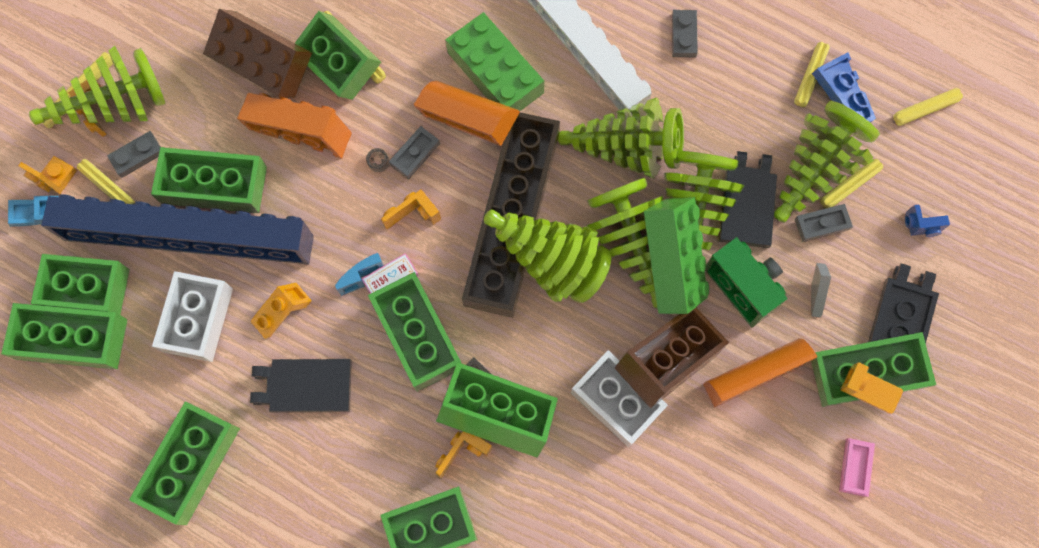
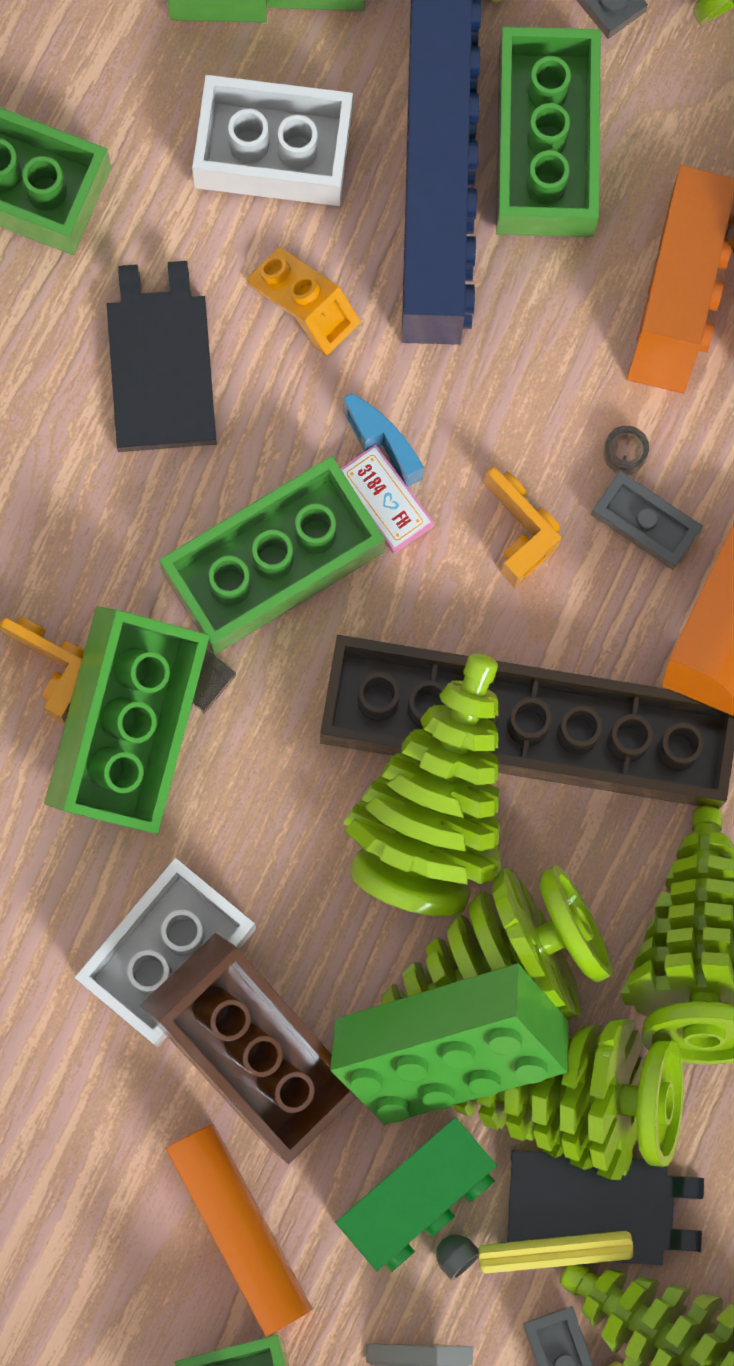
camera: 80 degrees right, 5 degrees up
(771, 221) = (555, 1252): none -> light yellow axle

